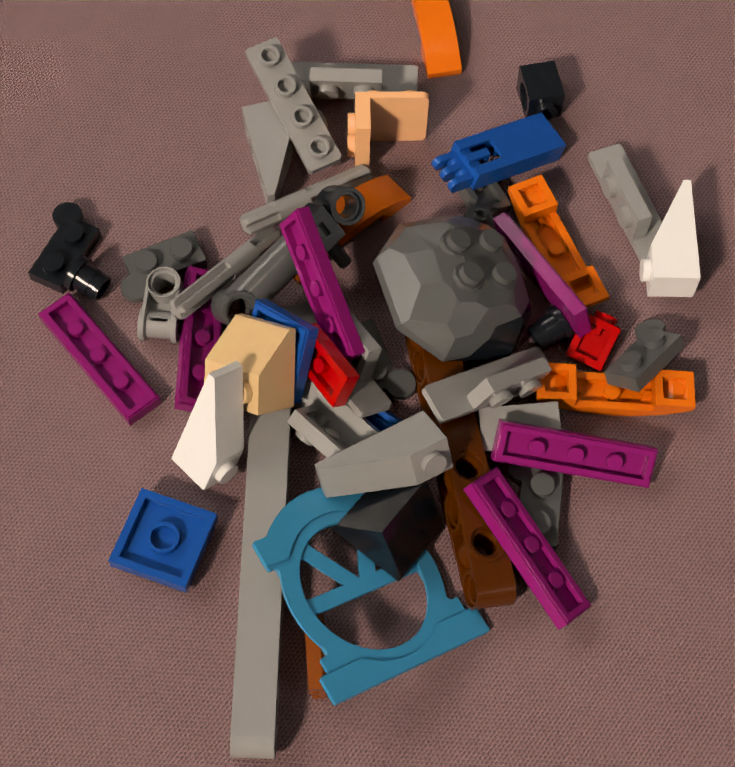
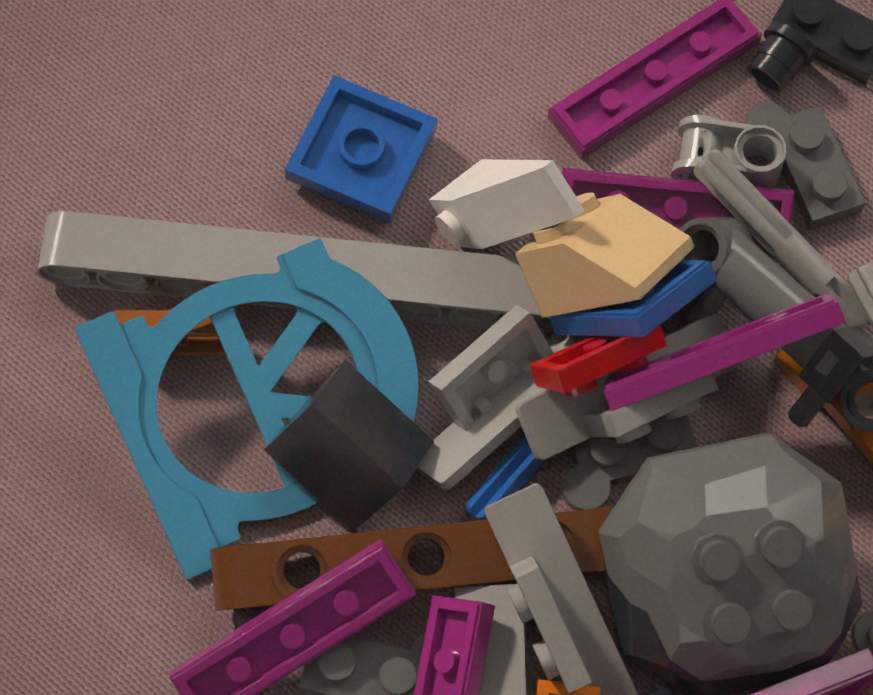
camera: 90 degrees right, 5 degrees up
(388, 460) = (438, 445): light grey slope -> none

